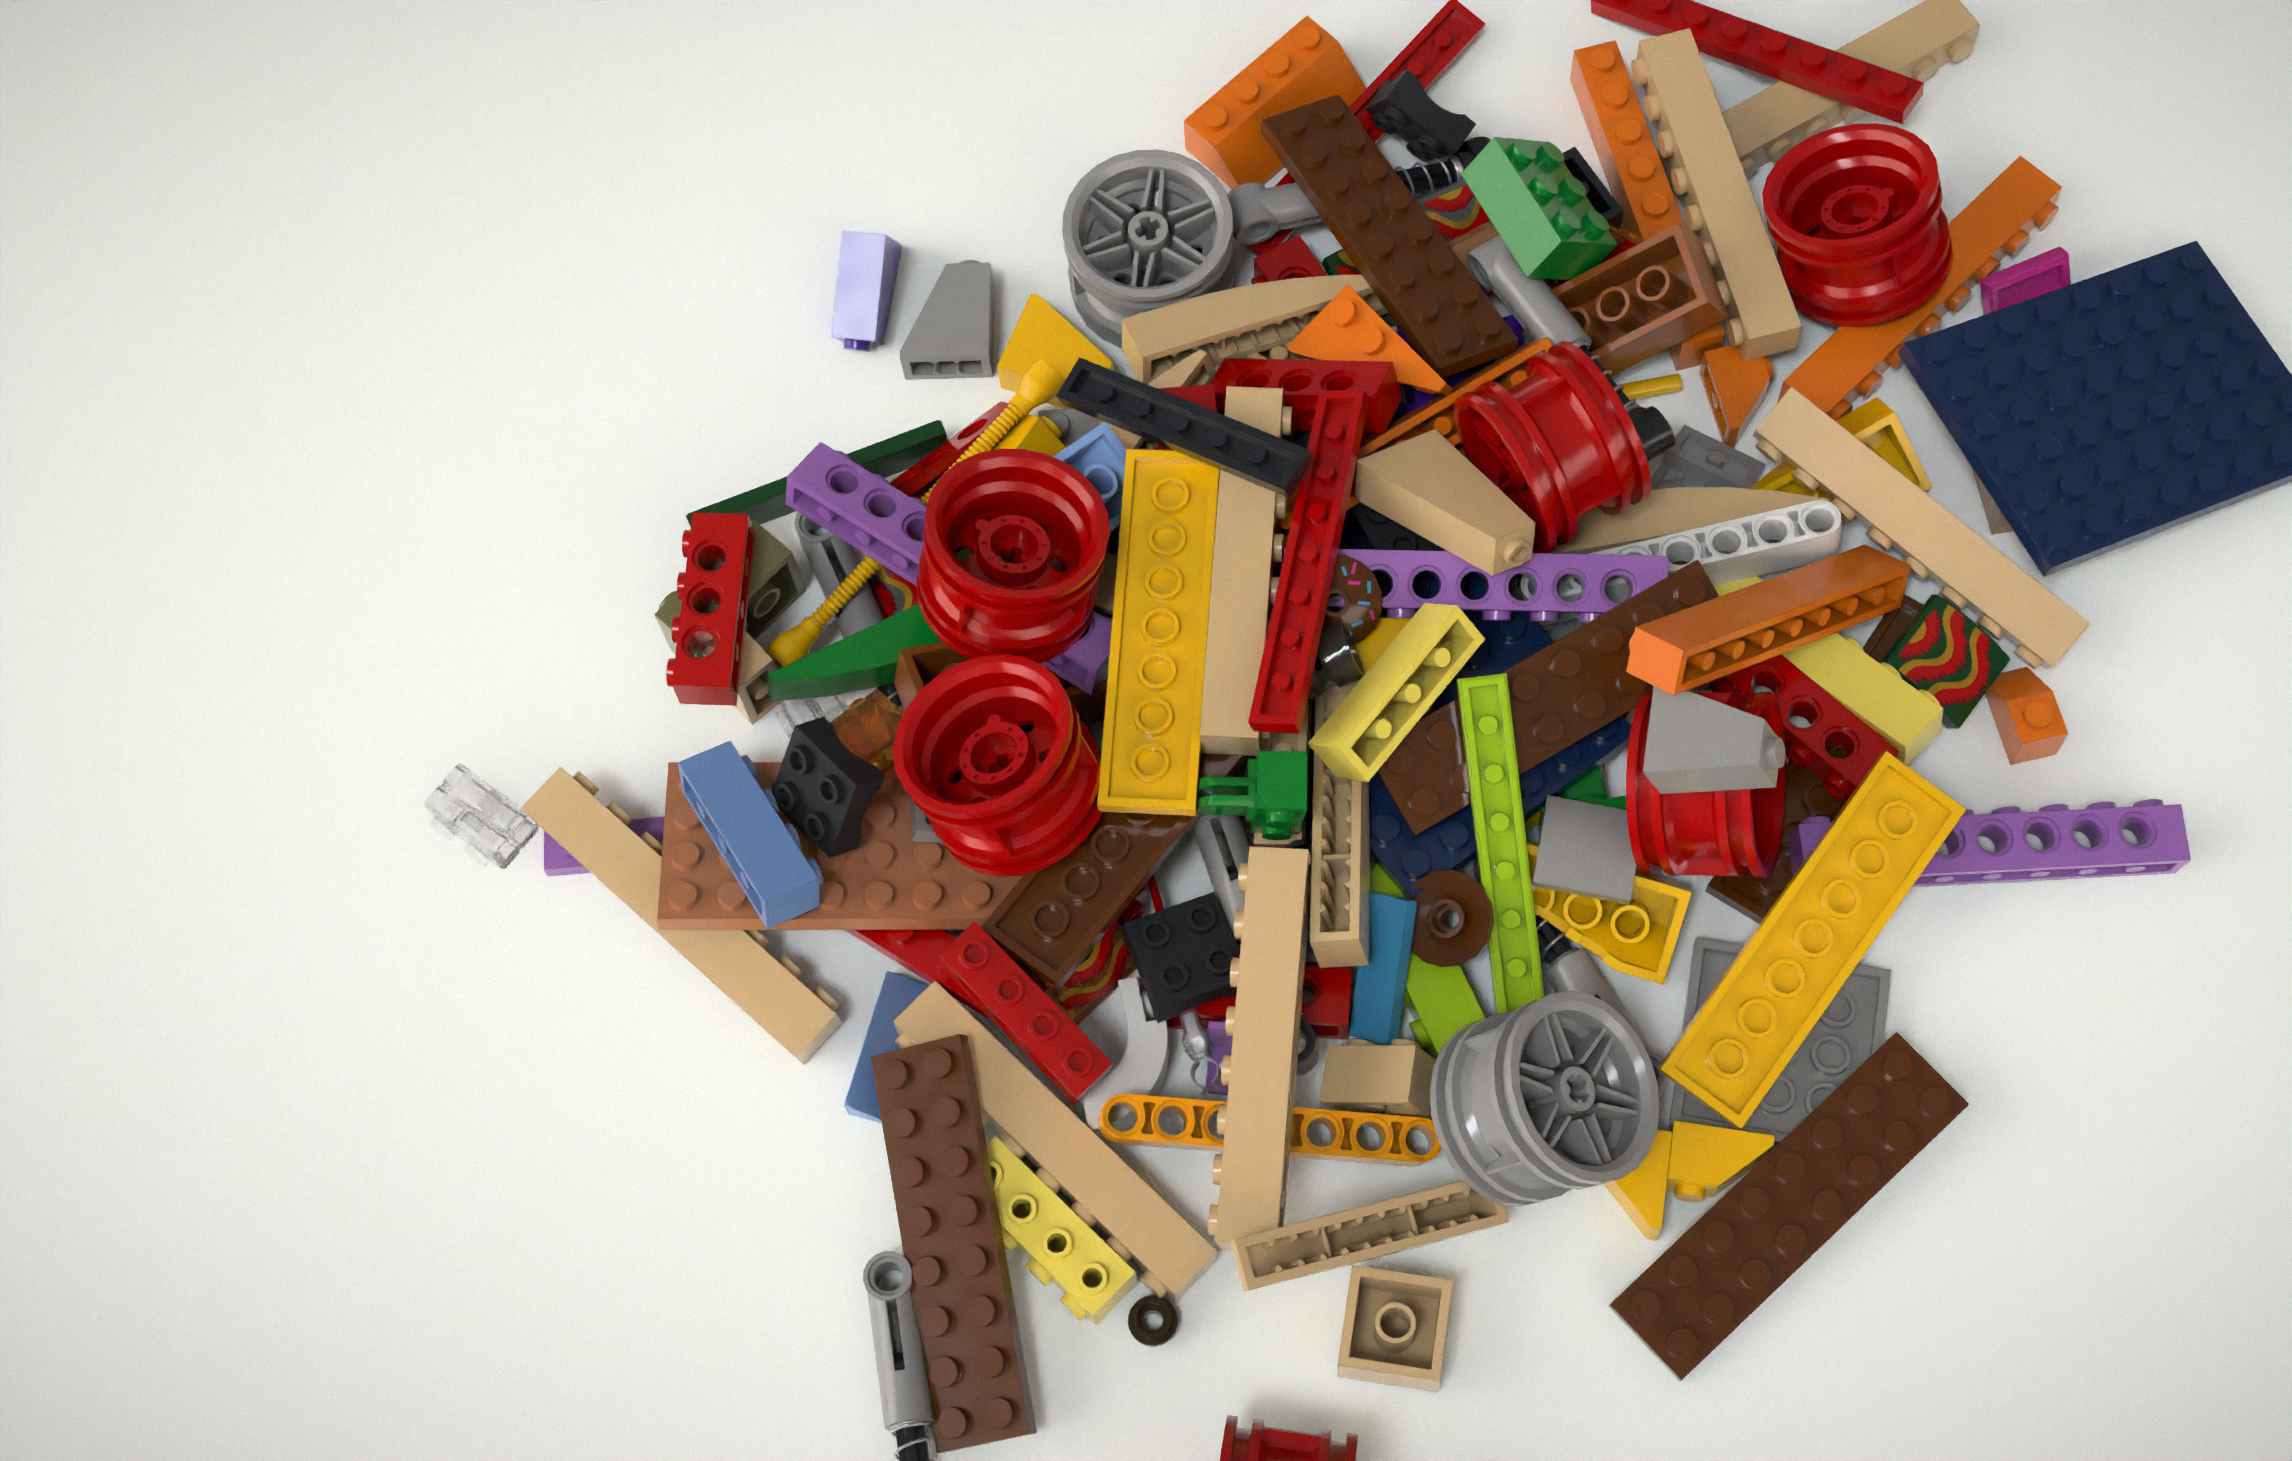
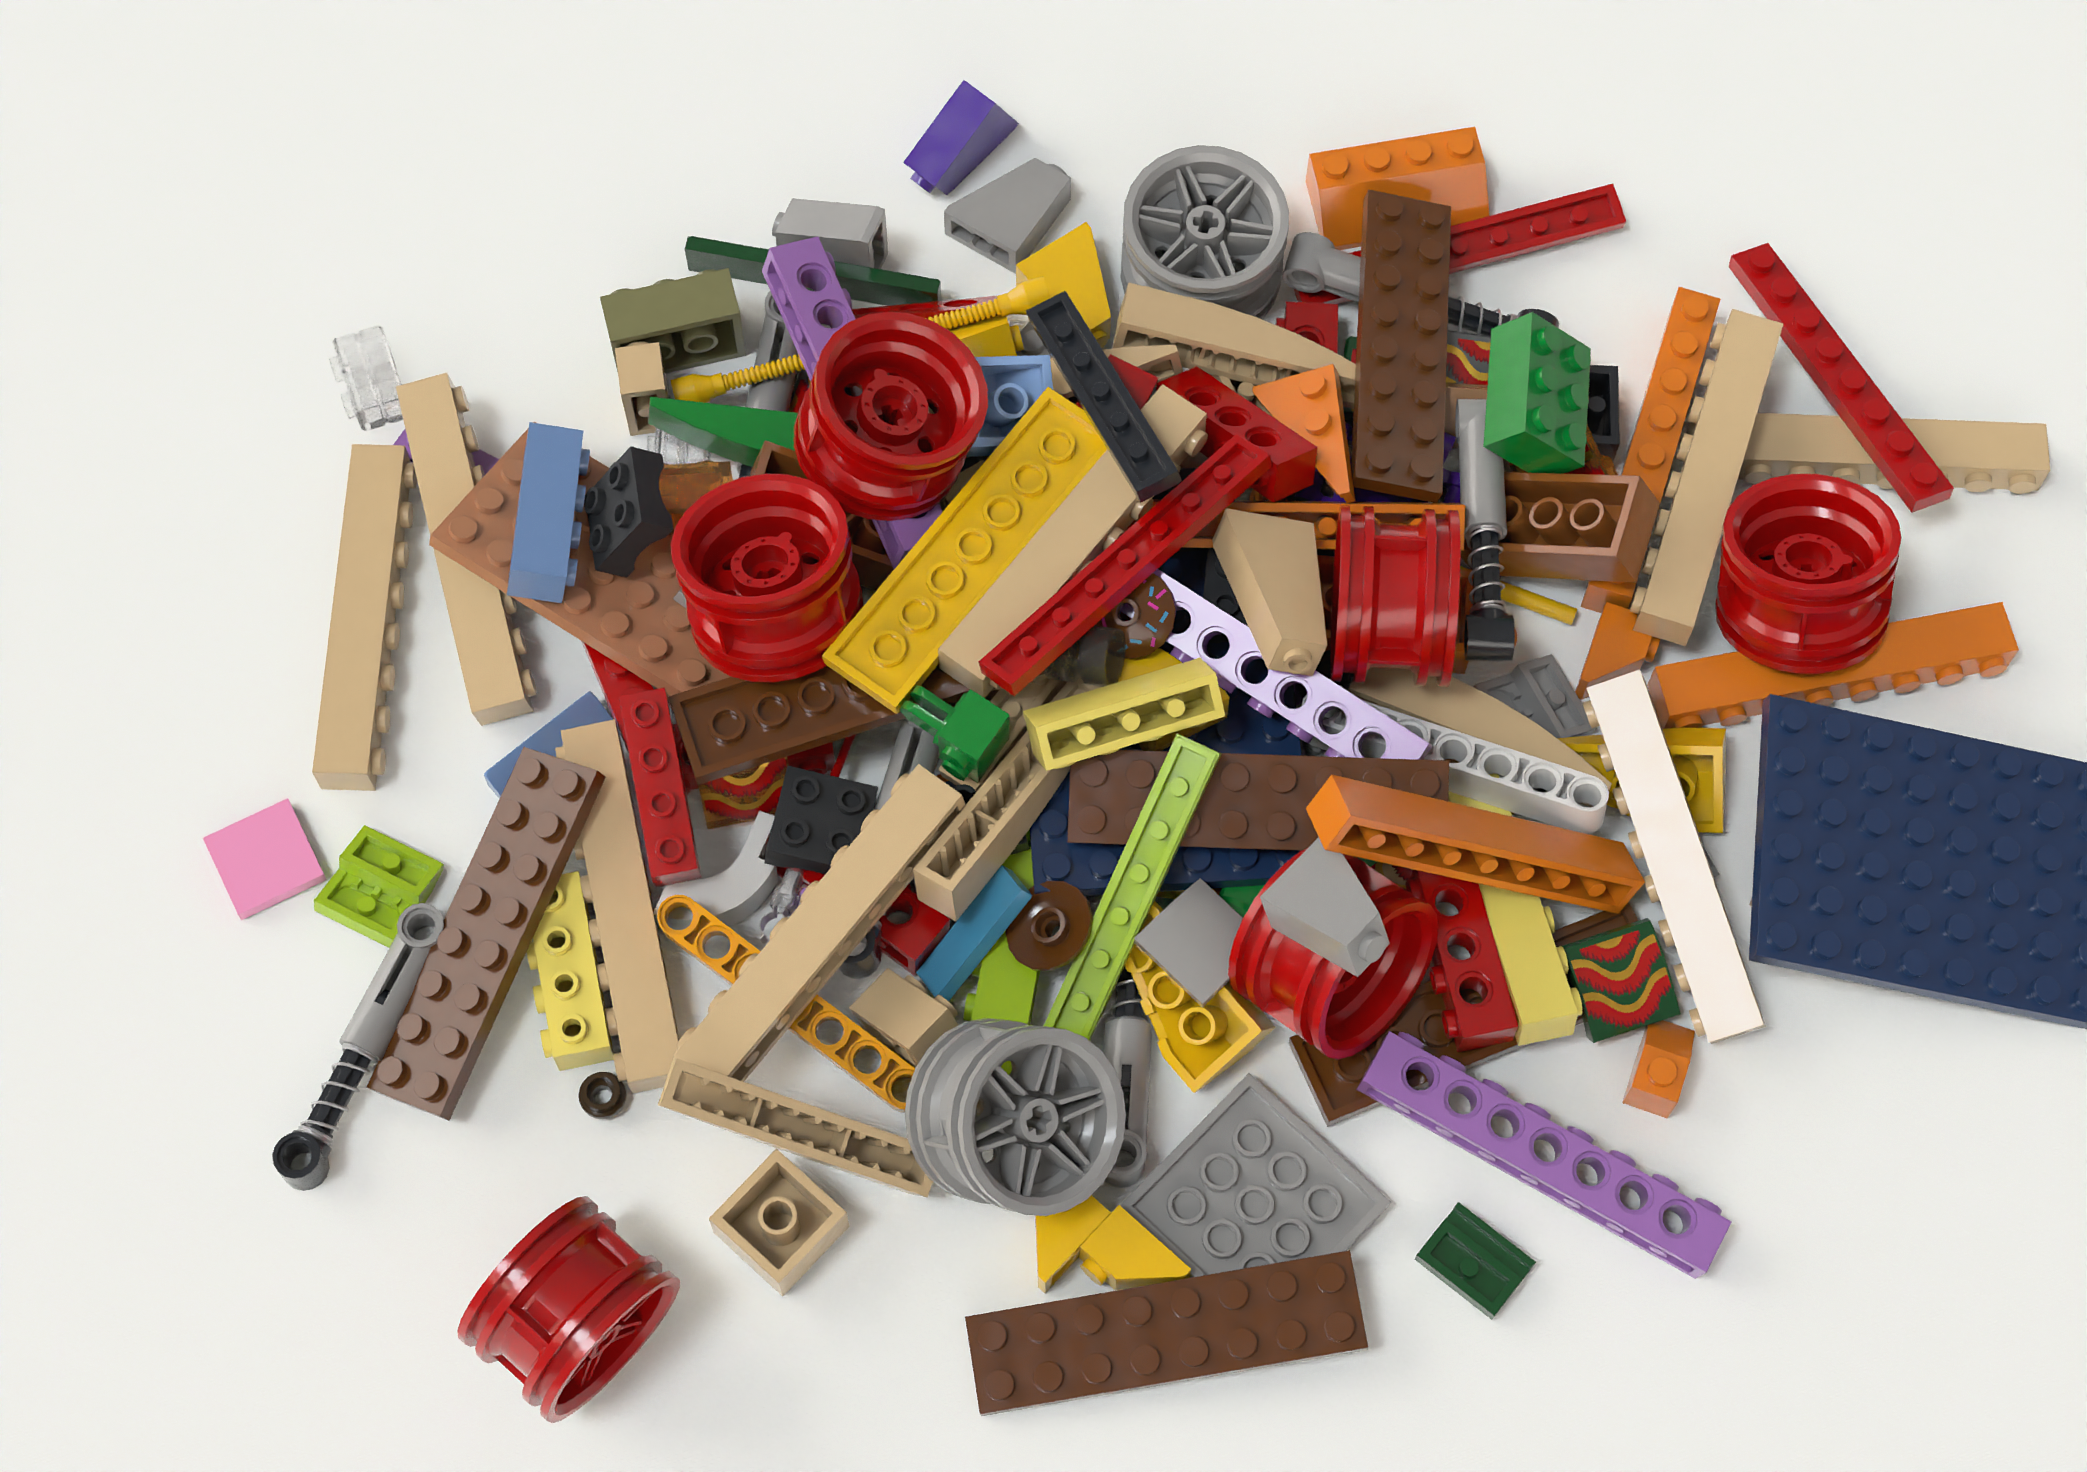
camera: 25 degrees right, 0 degrees up
(630, 1035) = (364, 619): none -> tan brick
(693, 1309) = (264, 859): none -> bright pink tile
(715, 676) = (640, 341): red brick -> none
(789, 438) = (846, 230): none -> light grey slope
(816, 1267) = (377, 884): none -> lime slope
(1410, 113) = (1507, 282): black brick -> none
(1811, 940) = (1331, 1130): yellow plate -> none
(1993, 974) = (1475, 1260): none -> dark green plate
(2025, 280) = (1932, 709): dark pink tile -> none

